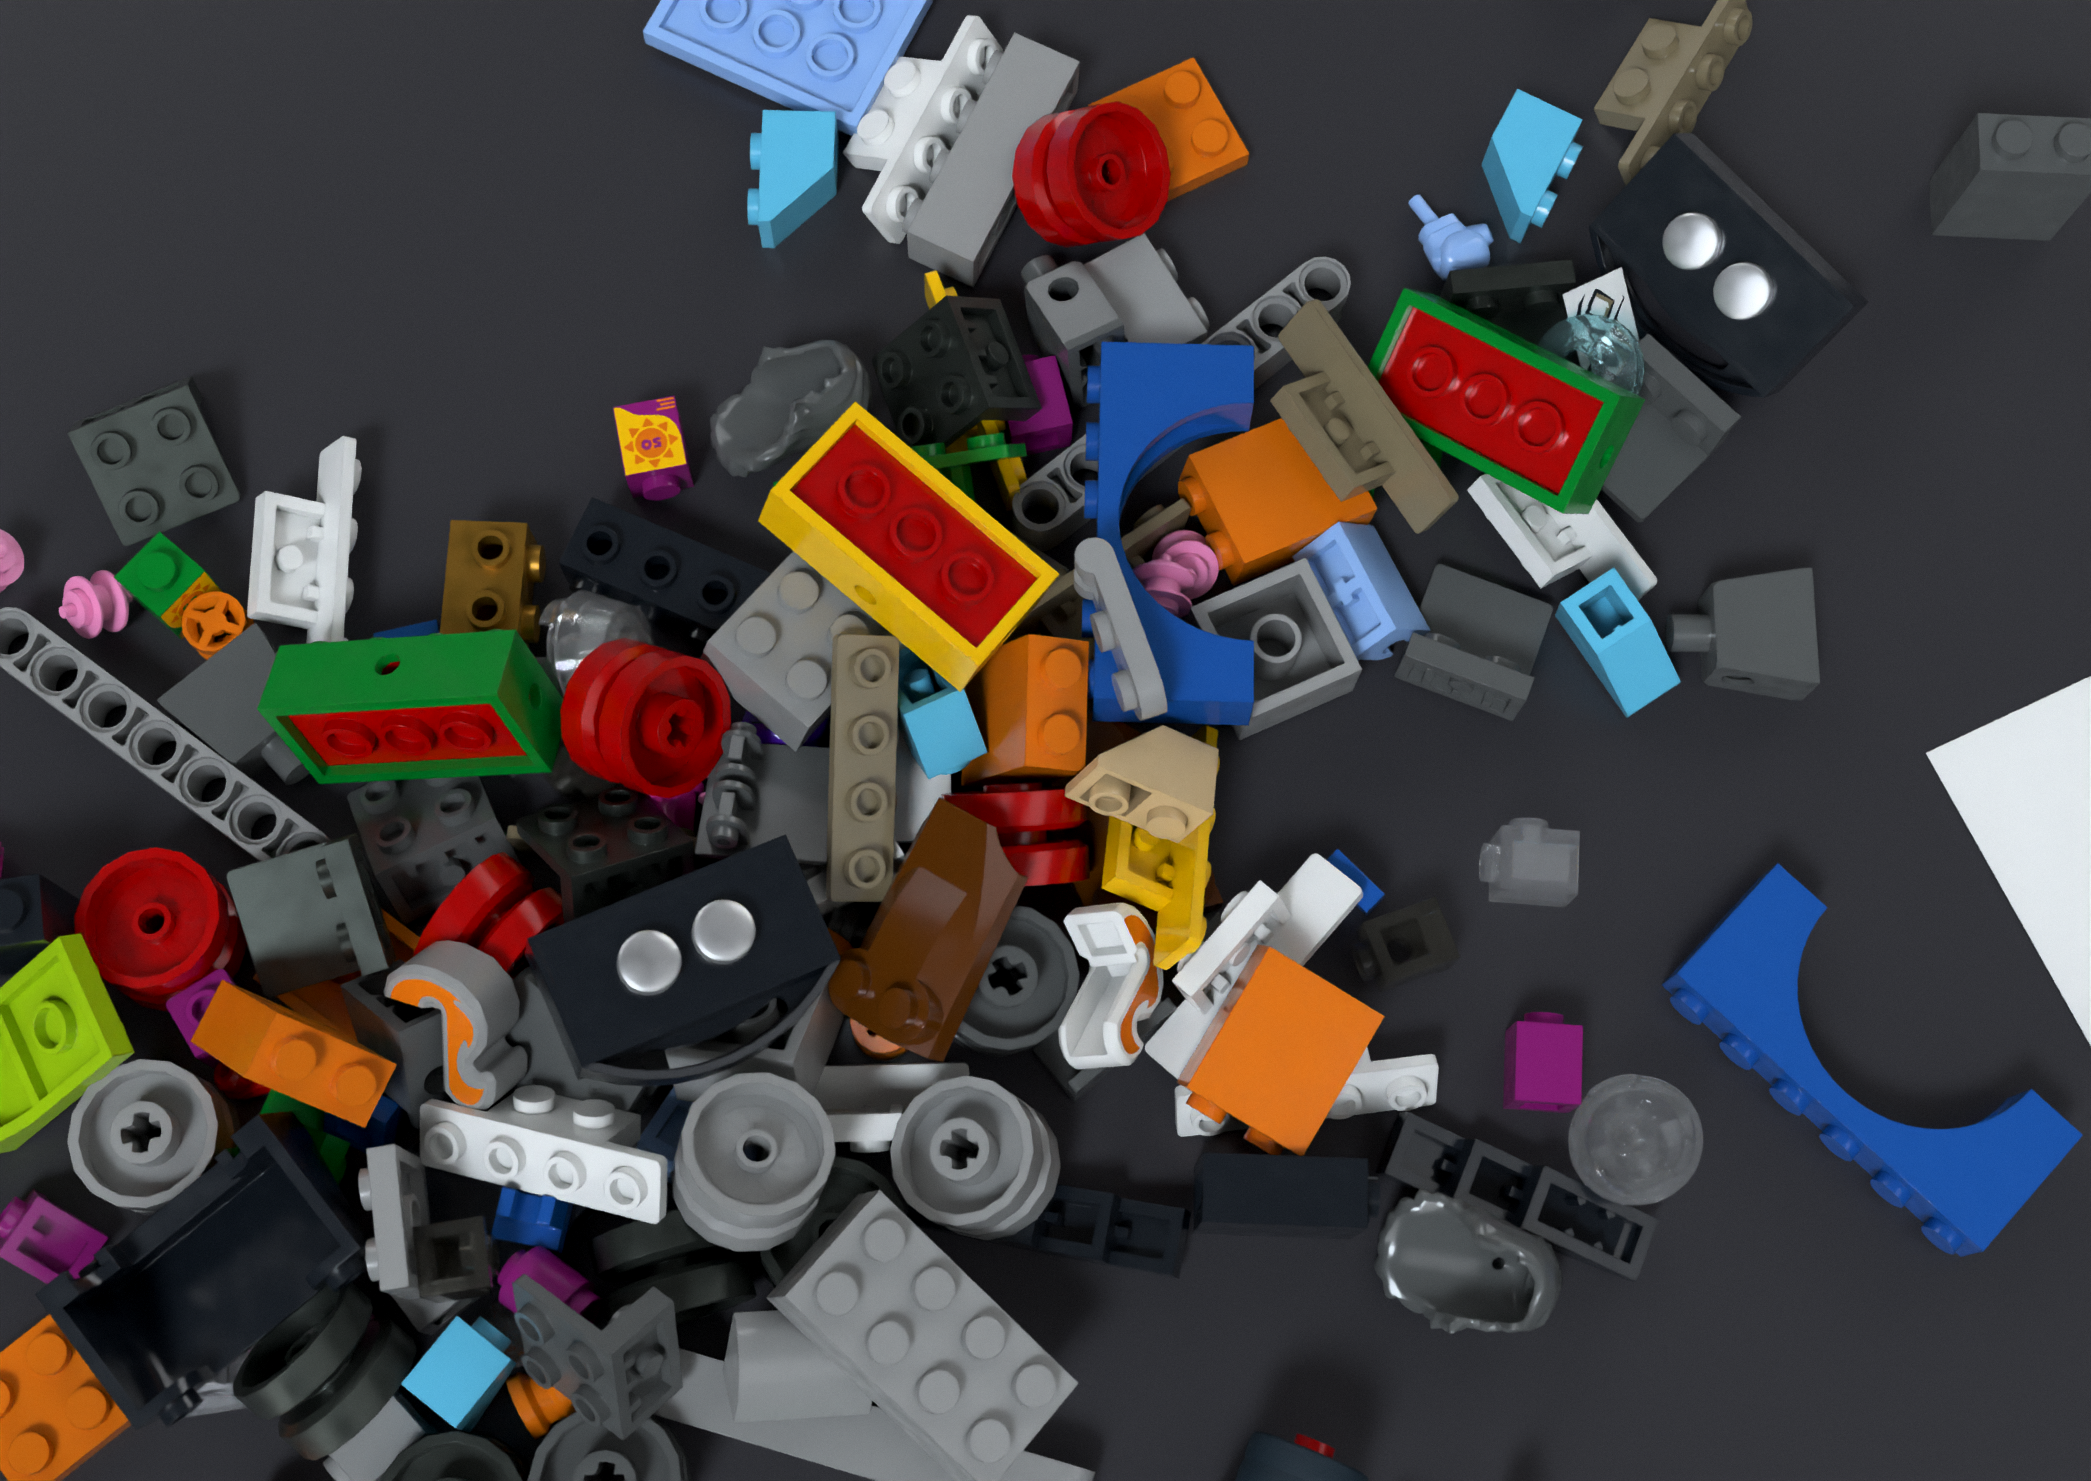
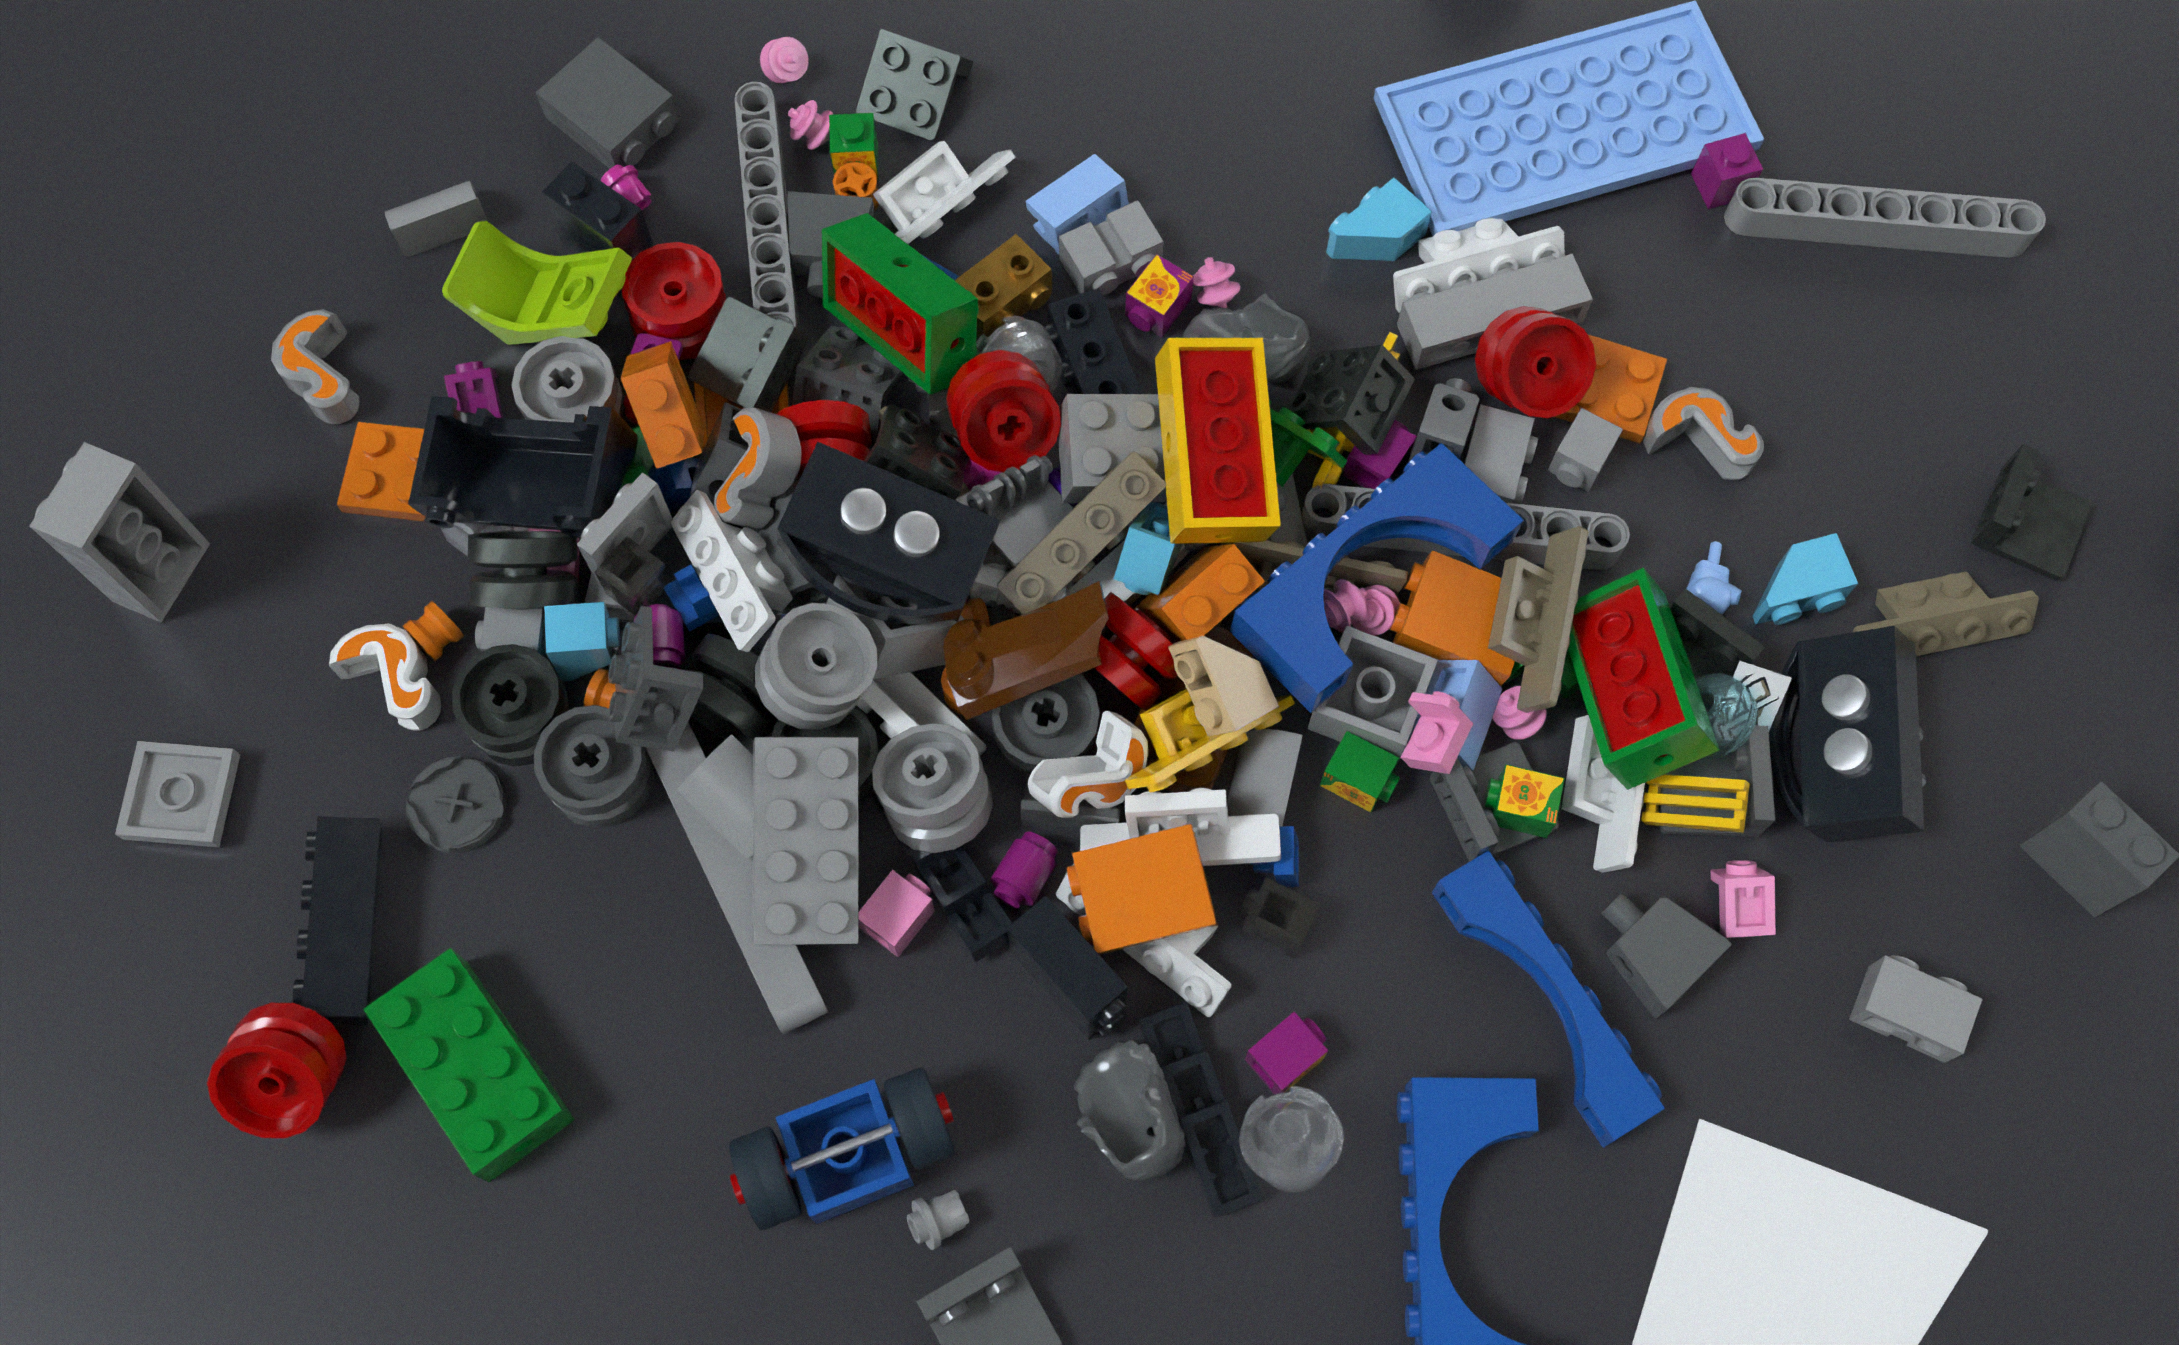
camera: 50 degrees right, 5 degrees down
(469, 427) = (1076, 199): none -> light blue hinge
(556, 446) = (1111, 250): none -> light grey brick
(696, 381) = (1215, 282): none -> bright pink wheel
(1058, 1306) = (896, 911): none -> bright pink brick
(1119, 629) = (1282, 584): light grey plate -> none
(1130, 1144) = (1024, 870): none -> magenta brick
(1213, 220) = (1584, 450): none -> light grey brick
(1257, 828) = (1264, 773): none -> light grey brick
(1303, 89) = (1710, 426): none -> light grey animal
(1334, 734) = (1361, 772): none -> green brick
(1380, 630) = (1437, 734): none -> bright pink bracket
(1410, 547) = (1514, 722): none -> bright pink wheel
(1509, 613) = (1524, 800): none -> brick
(1531, 864) = (1396, 944): clear brick -> none
(1618, 642) = (1573, 877): medium azure slope -> none
(1698, 433) = (1655, 798): none -> yellow tile
(1772, 512) = (1745, 899): none -> bright pink bracket
(1831, 803) = (1608, 1084): none -> blue arch
(2002, 469) = (1916, 1007): none -> light grey brick

